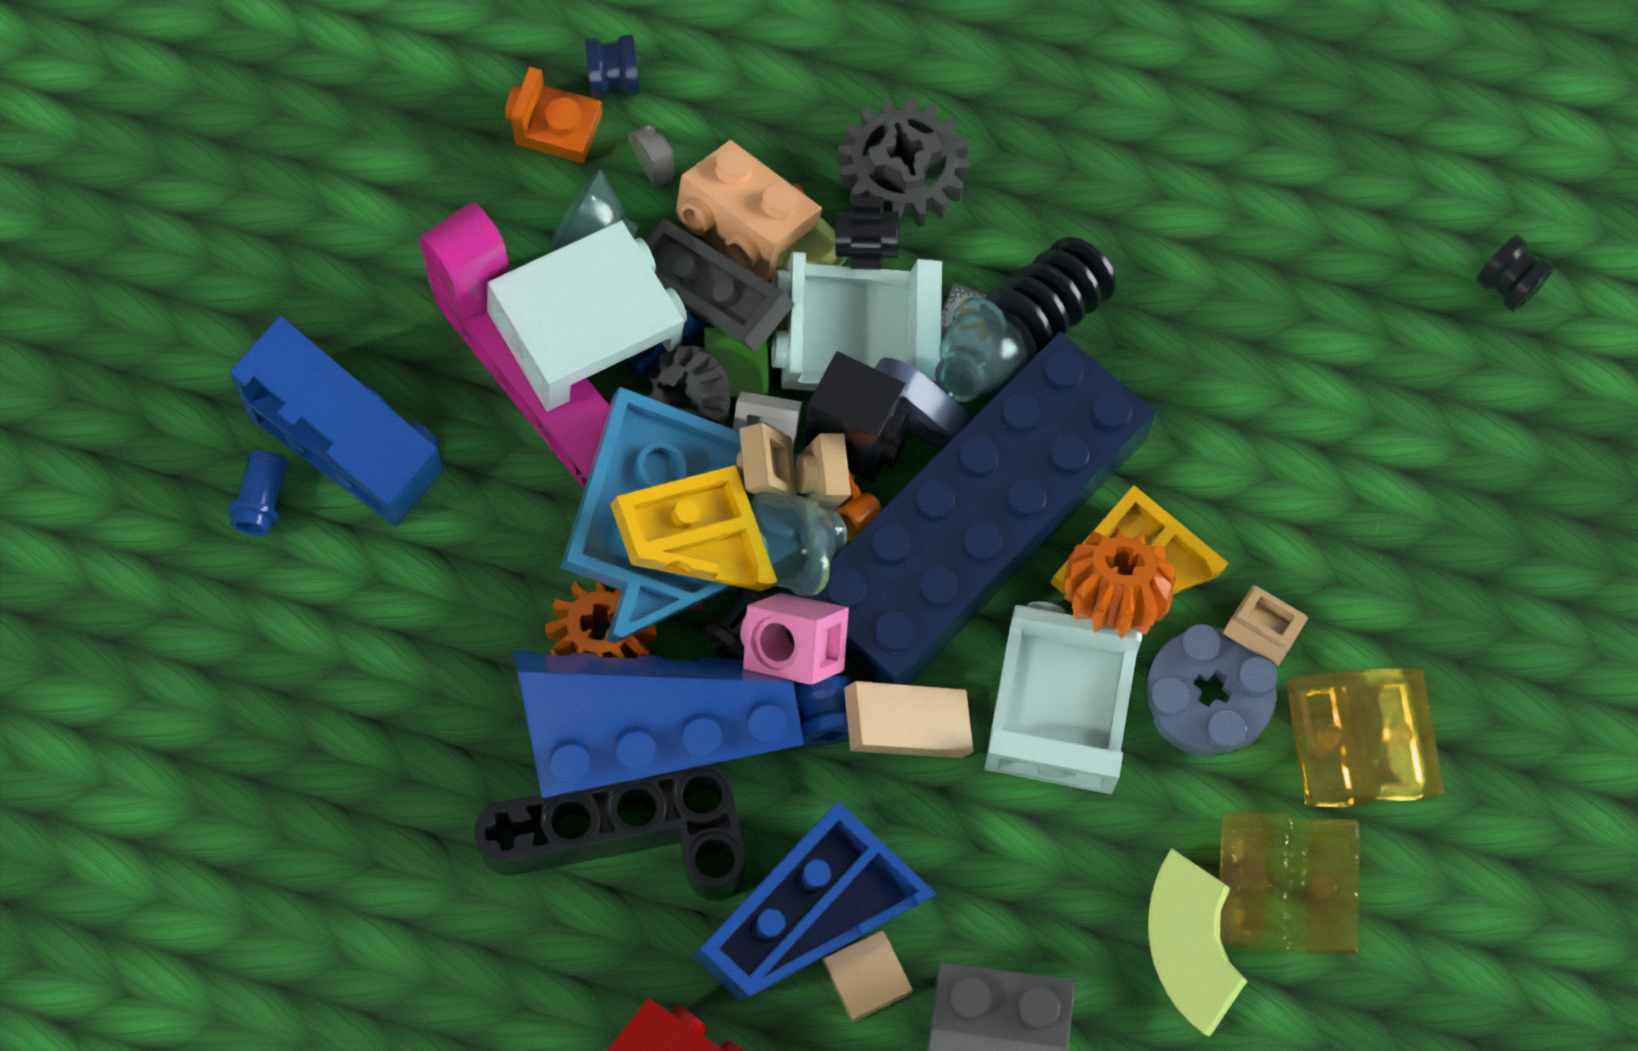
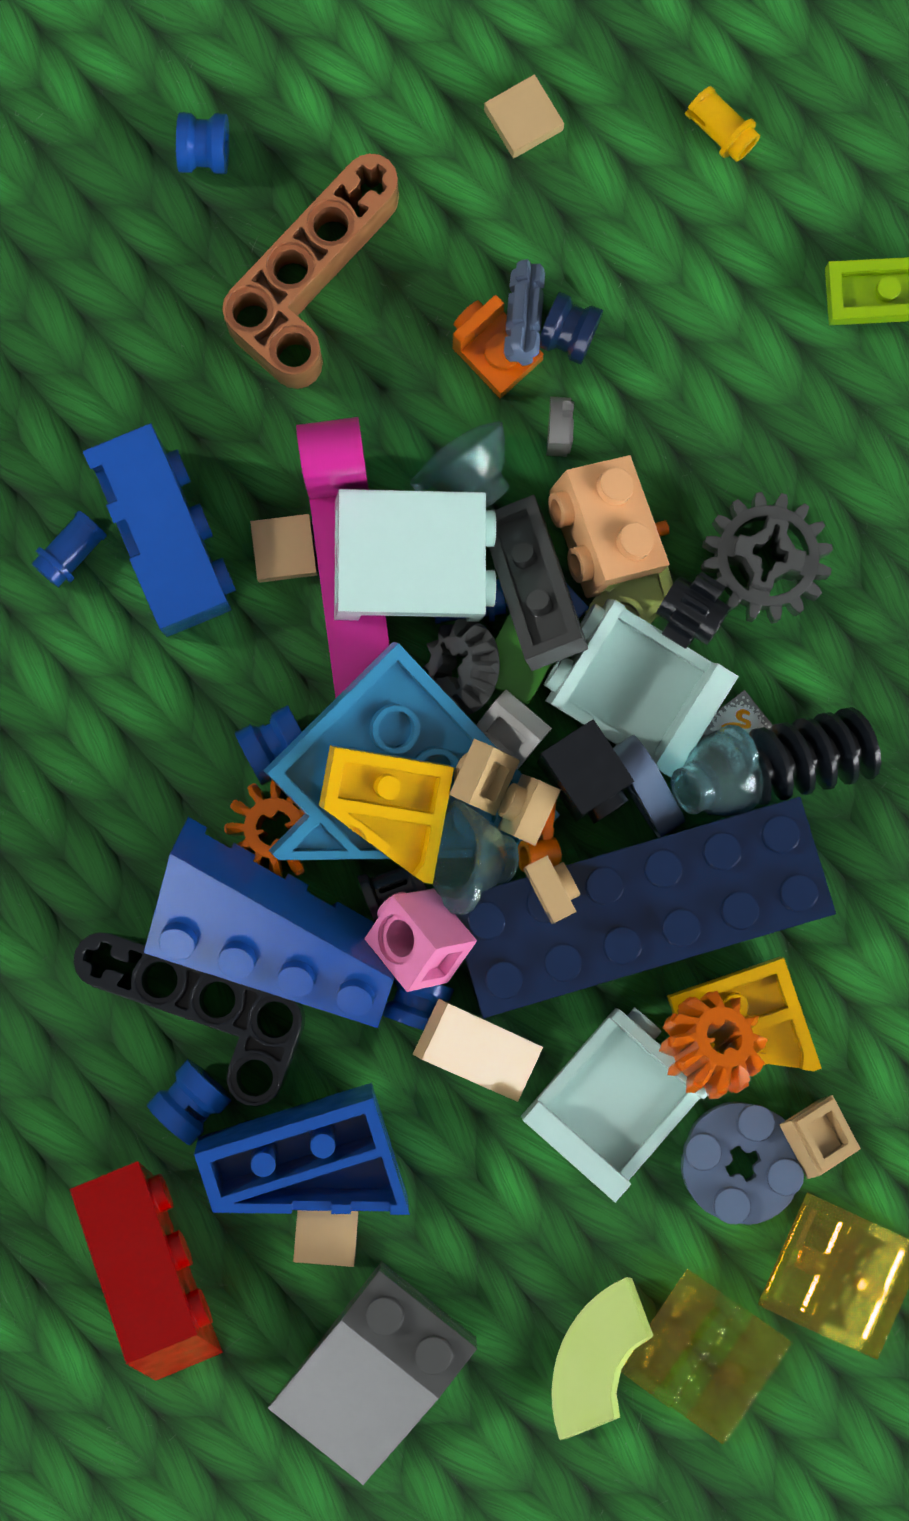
camera: 30 degrees right, 15 degrees up
(186, 84) = (202, 143): none -> blue wheel
(351, 126) = (319, 257): none -> nougat beam
(461, 388) = (283, 548): none -> tan tile
(541, 564) = (267, 741): none -> blue wheel
(564, 72) = (524, 312): none -> sand blue axle
(664, 924) = (189, 1102): none -> blue wheel
(888, 516) = (553, 888): none -> tan plate

